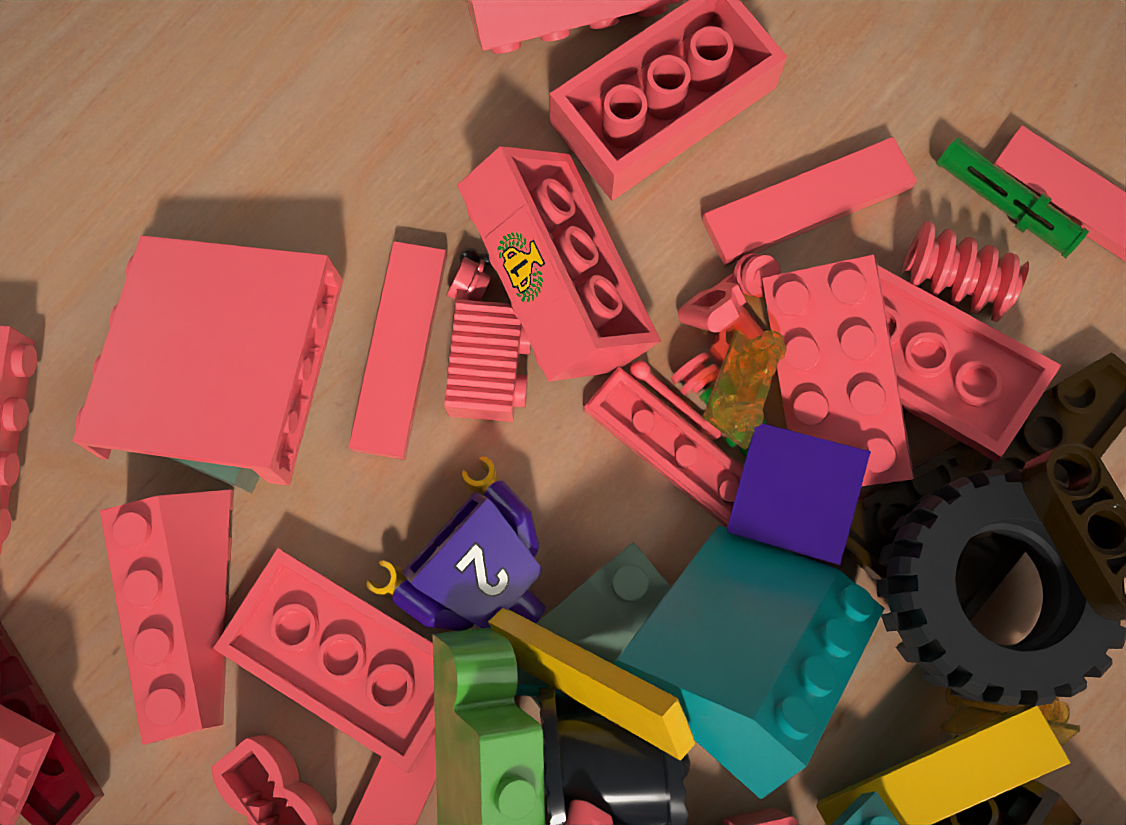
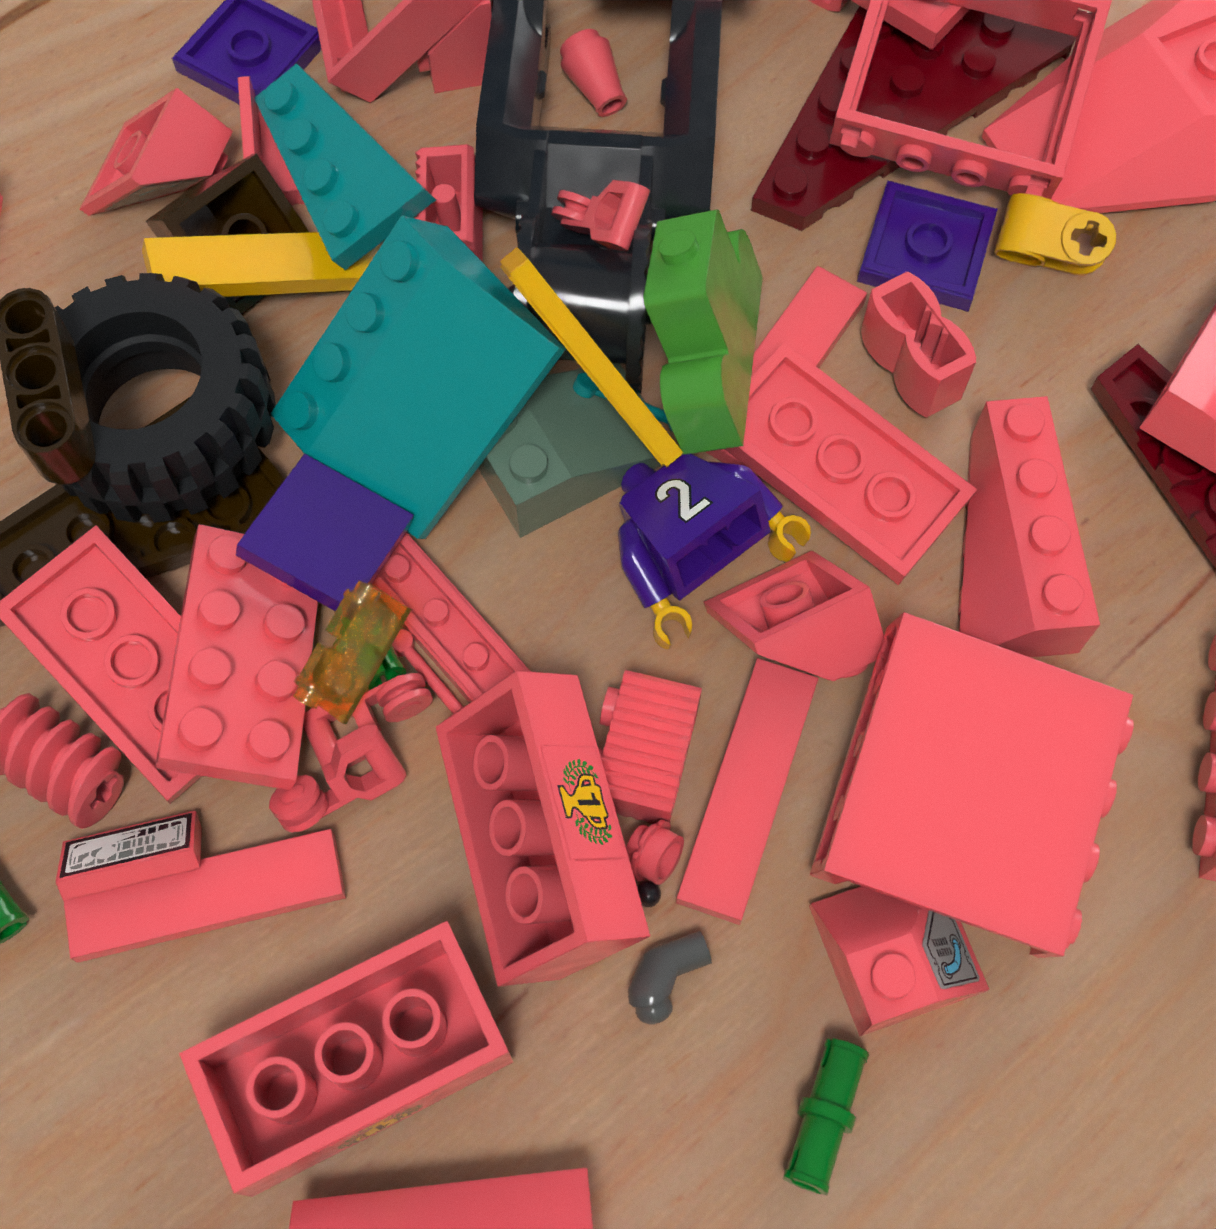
camera: 170 degrees left, 10 degrees down
(268, 214) = (895, 957): none -> coral slope
(317, 117) = (826, 1116): none -> green pin
(371, 494) = (804, 617): none -> coral slope
(449, 201) = (658, 972): none -> dark grey arm
(875, 214) = (129, 855): none -> tile

